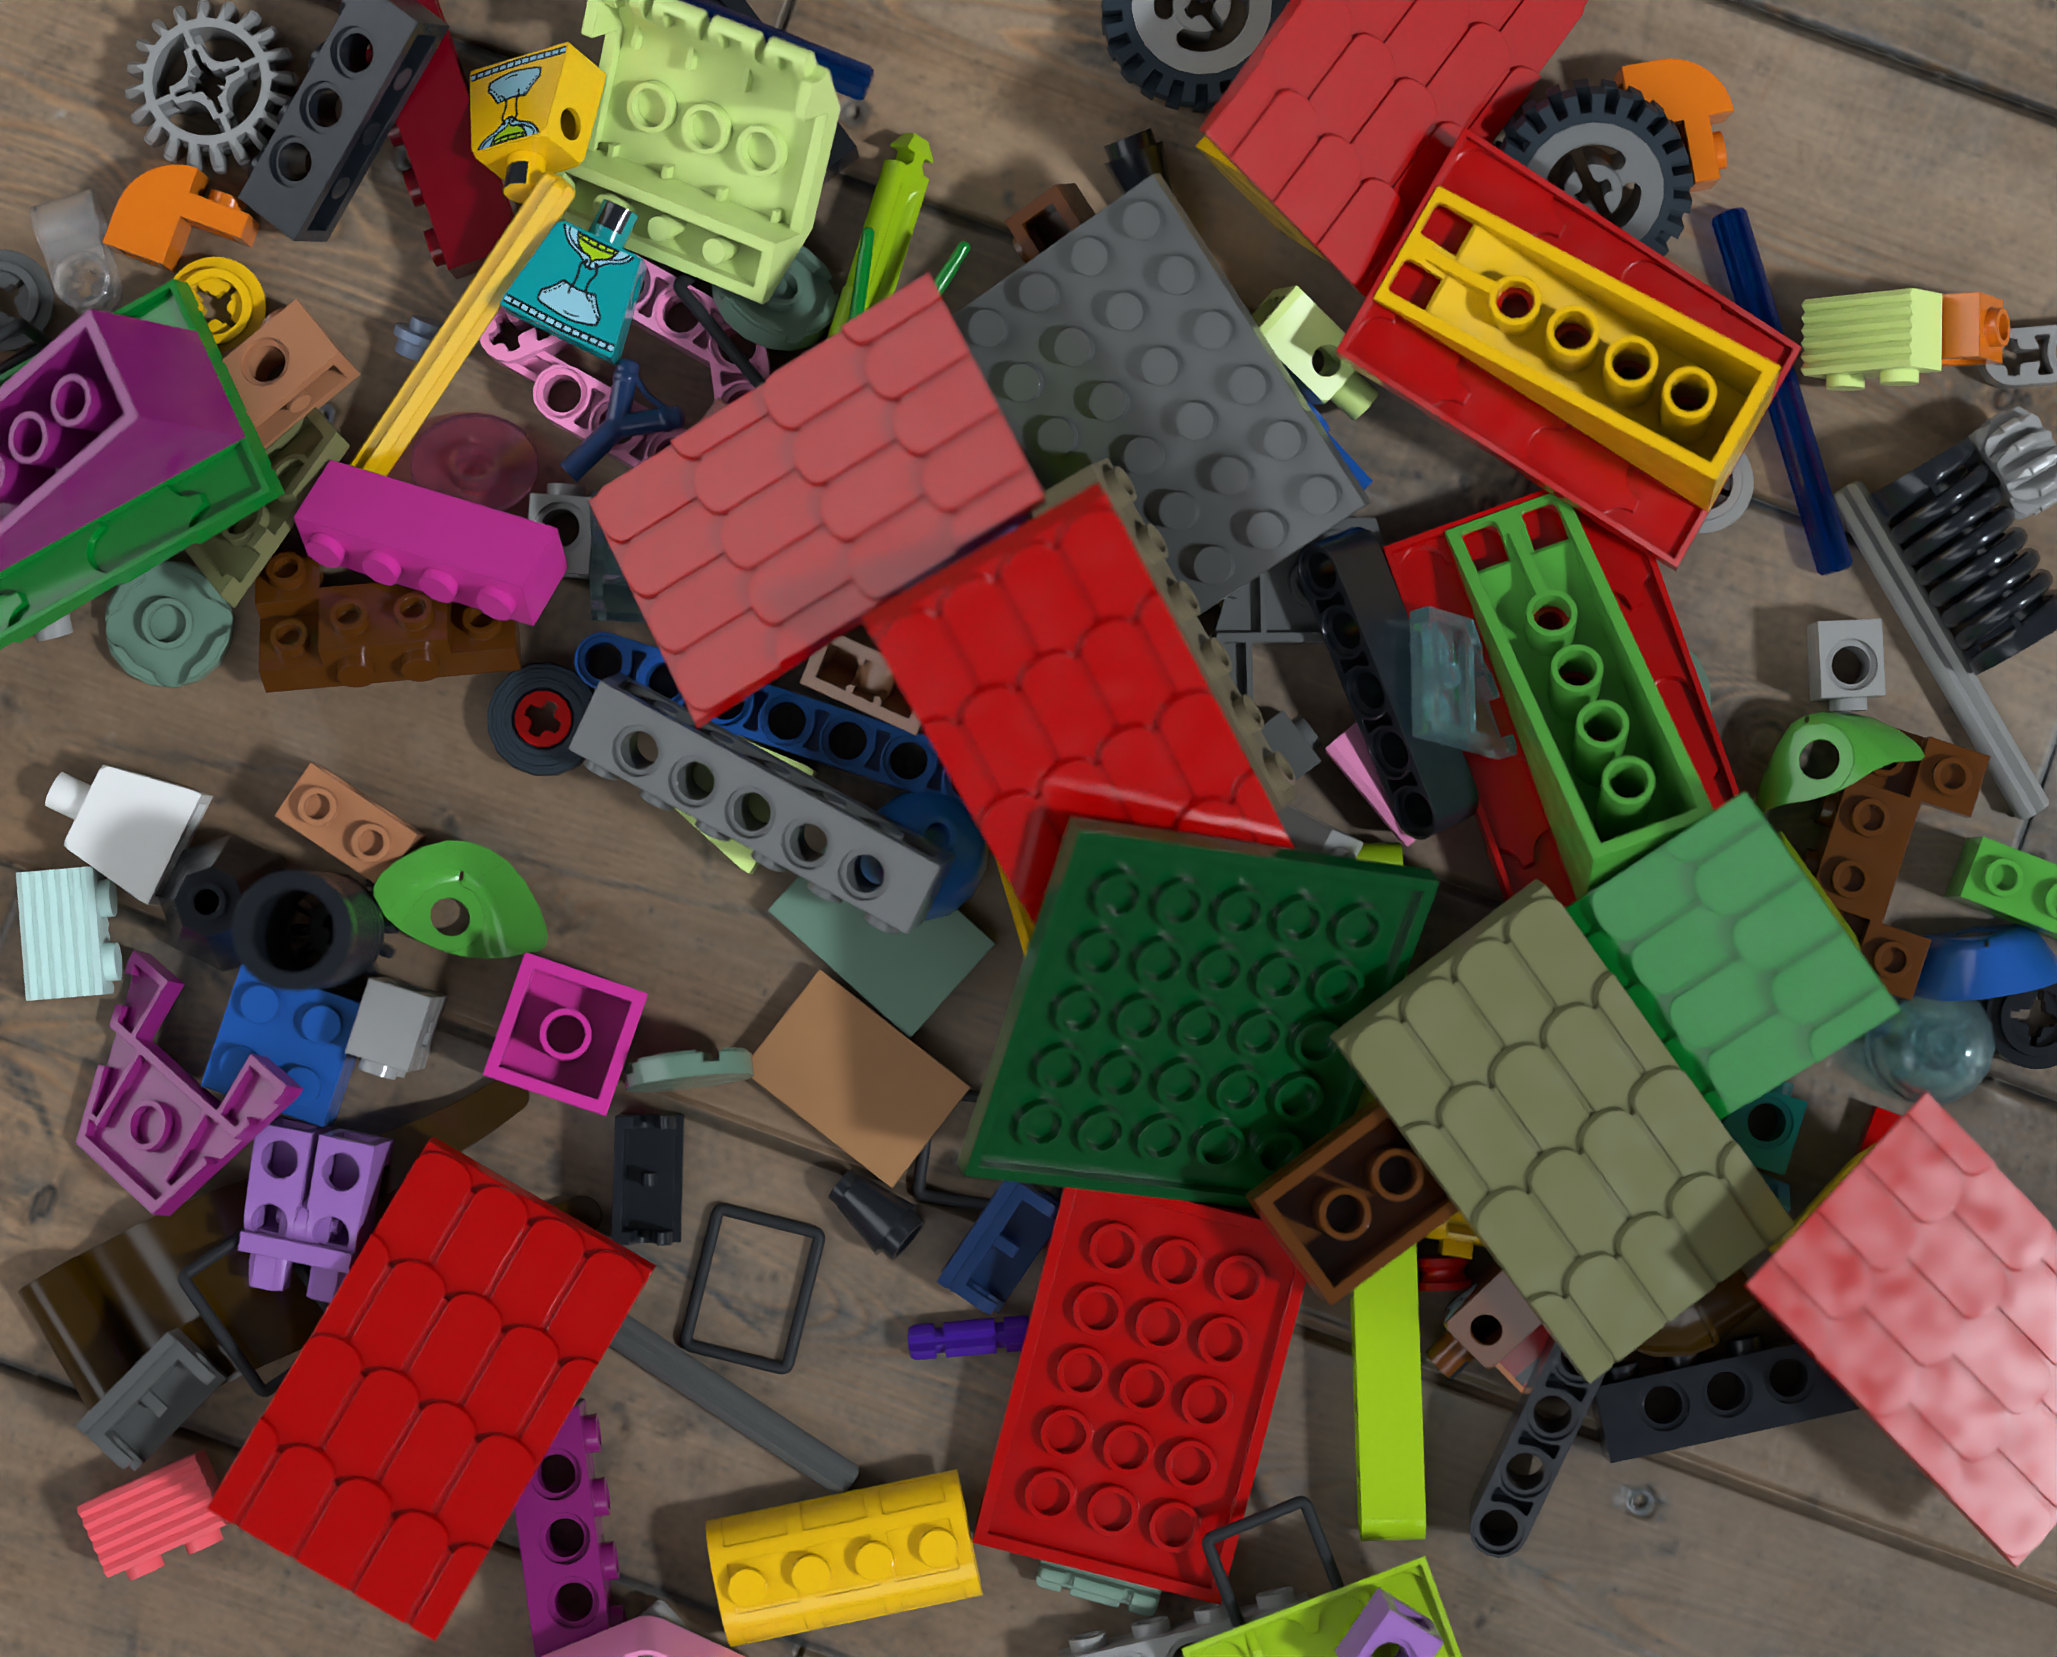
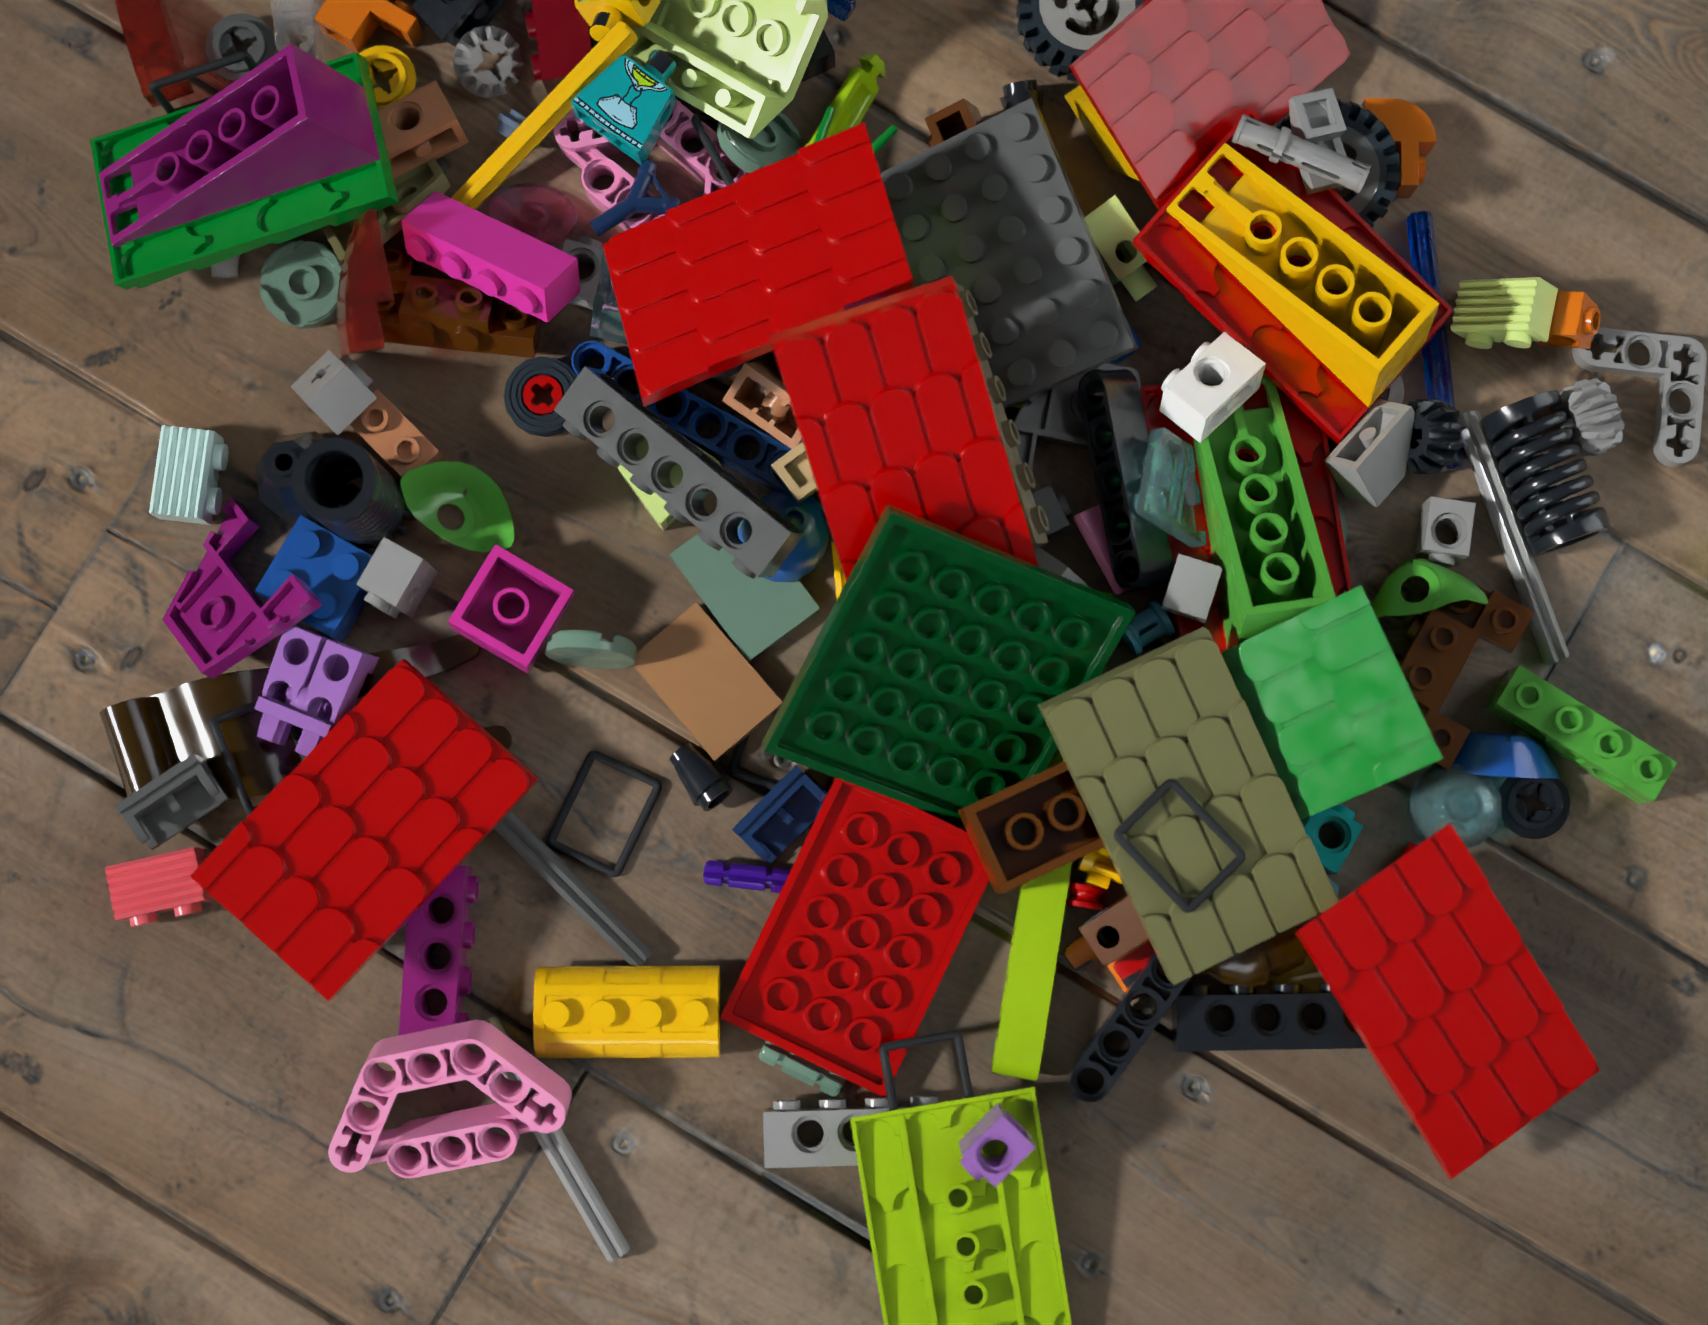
camera: 20 degrees right, 5 degrees down
(129, 825) = (247, 410): white torso -> none
(251, 776) = (335, 390): none -> light grey brick
(260, 628) = (362, 287): none -> clear red slope
(335, 252) = (468, 57): none -> light grey gear
(648, 1178) = (547, 721): black hinge -> none
(925, 772) = (796, 473): none -> tan tile
(1459, 878) = (1157, 623): none -> medium azure bush
(1473, 565) = (1202, 407): none -> white brick
(1510, 823) = (1191, 588): none -> light grey panel
(1533, 1239) = (1208, 820): none -> black piece
(1547, 182) = (1298, 152): none -> light grey pin
(1567, 155) = (1319, 121): none -> light grey slope
(1727, 574) = (1373, 453): none -> light grey slope
(1798, 535) = (1434, 437): none -> black gear

